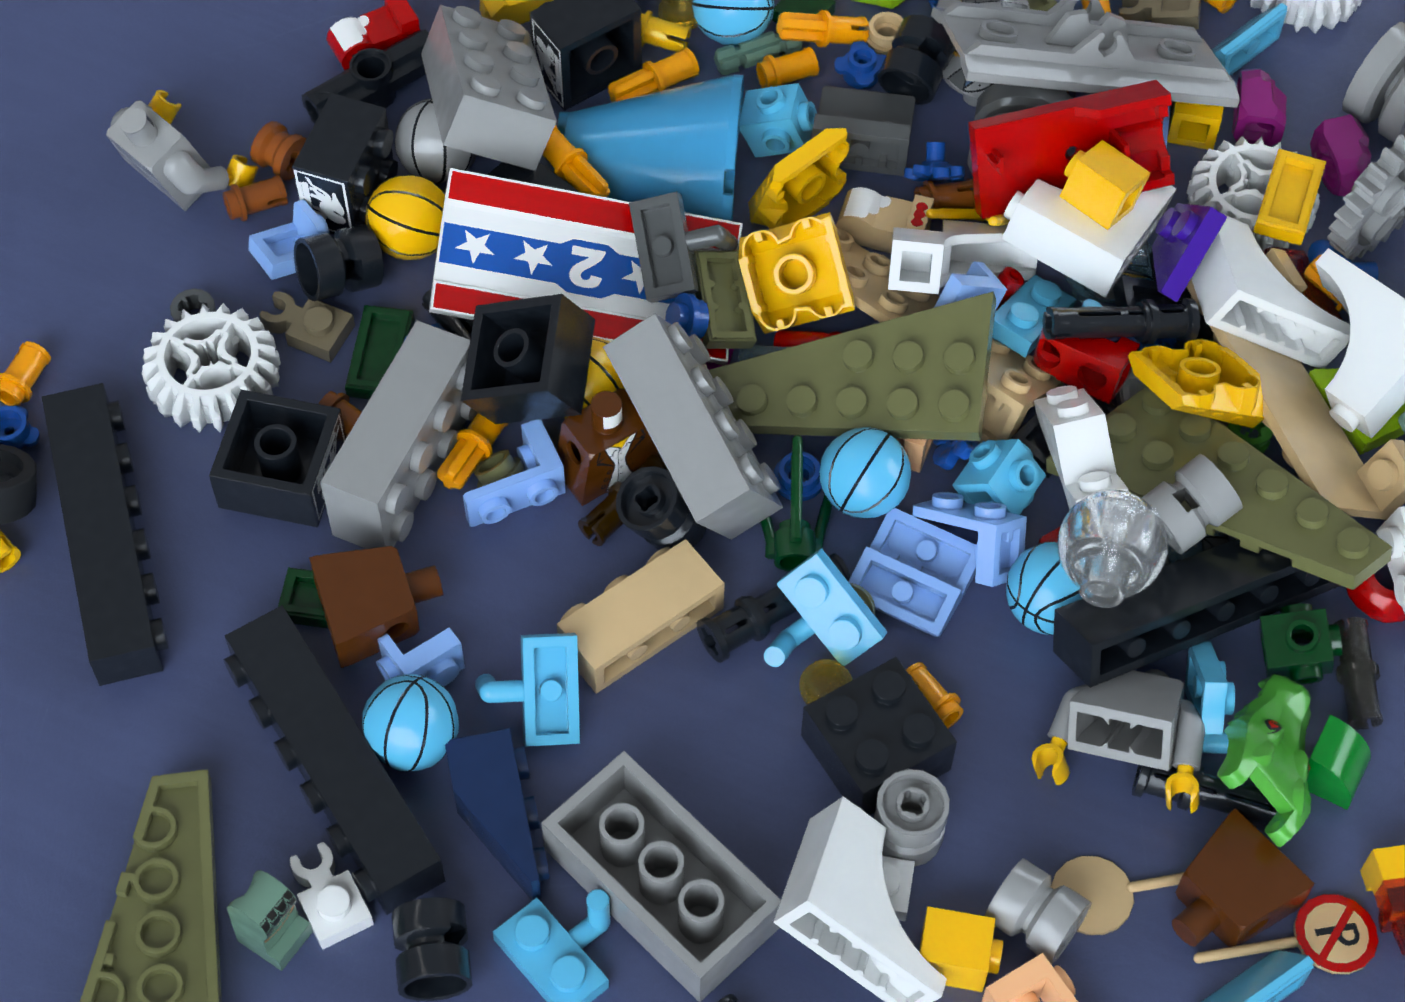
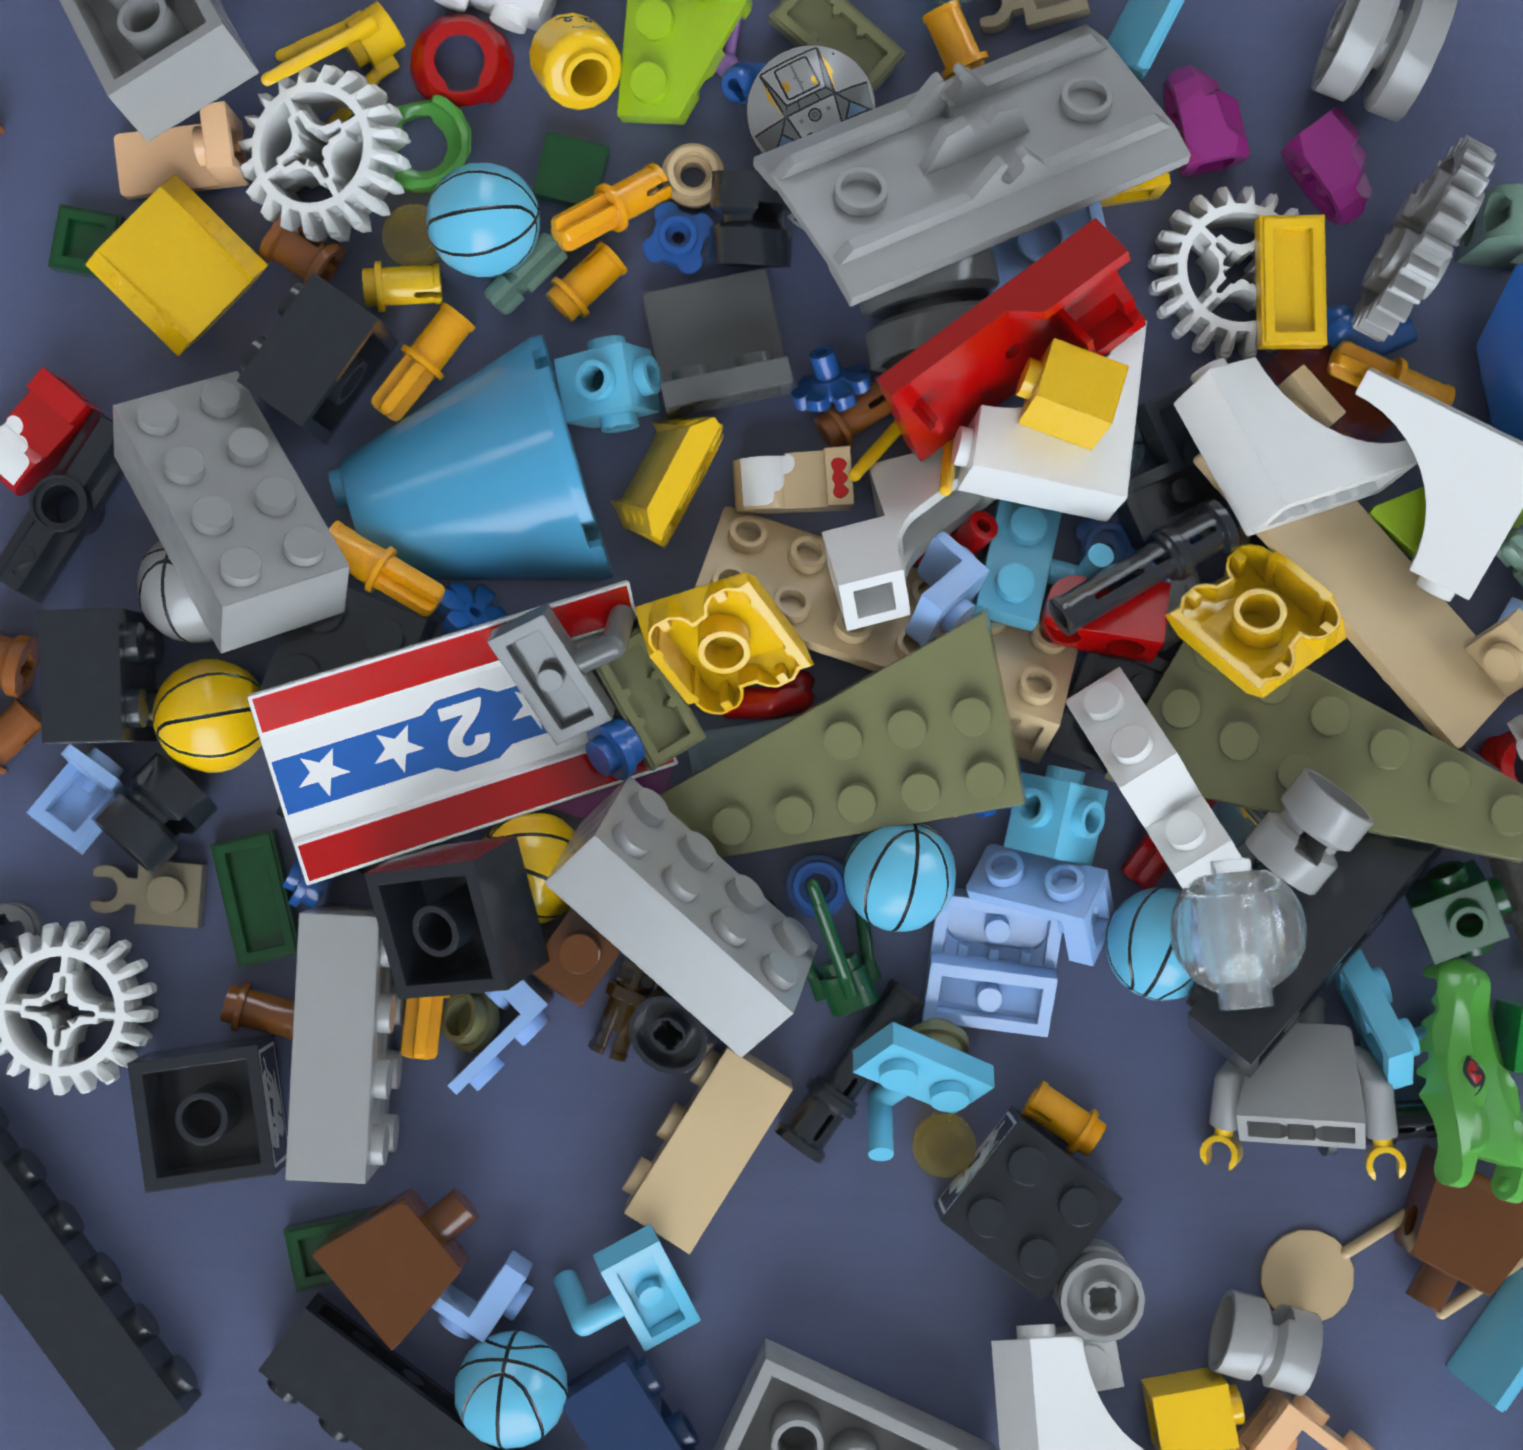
camera: 20 degrees left, 30 degrees up
(1181, 245) = (1191, 436): dark purple wing -> none

